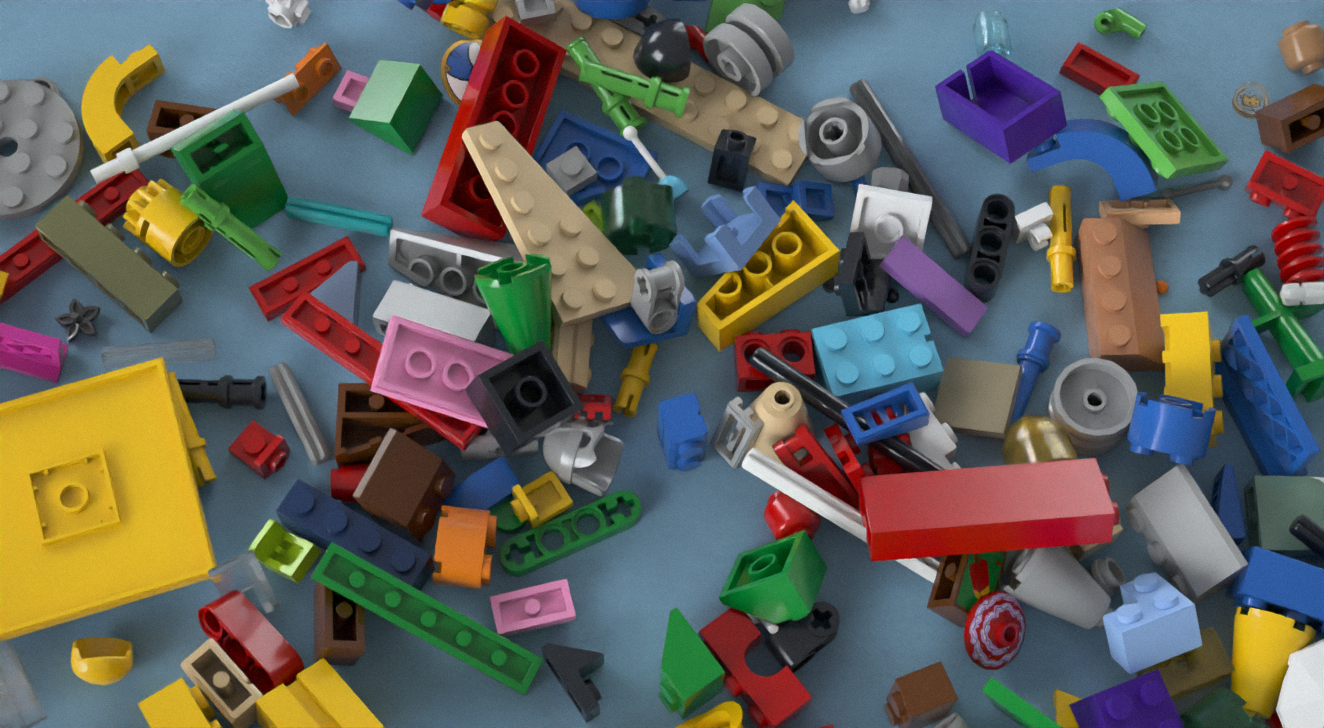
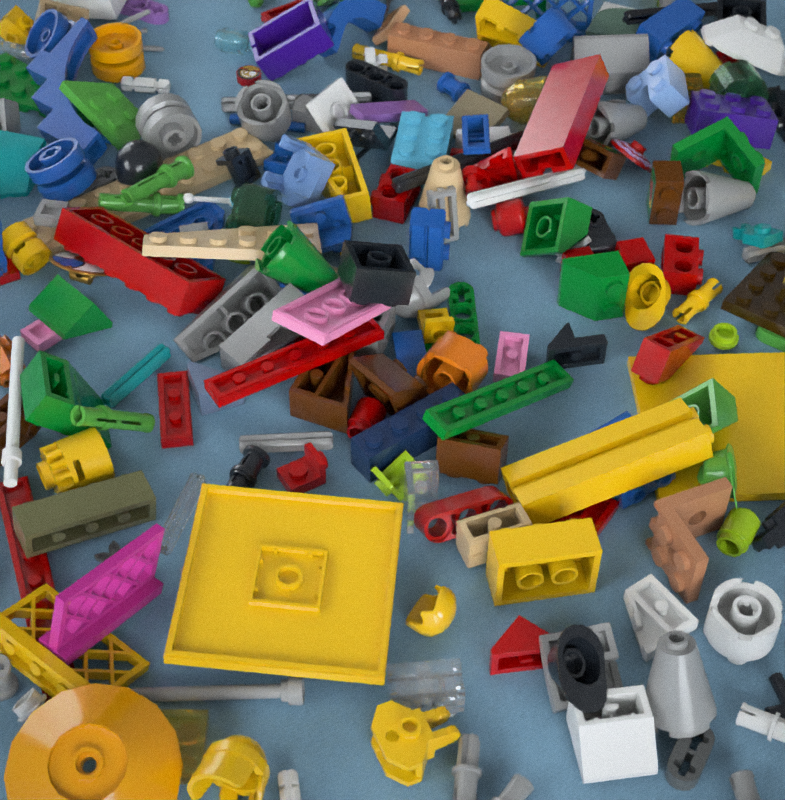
camera: 65 degrees left, 20 degrees down
(658, 296) = (328, 211): light grey piece -> none
(926, 87) = (248, 75): none -> tile

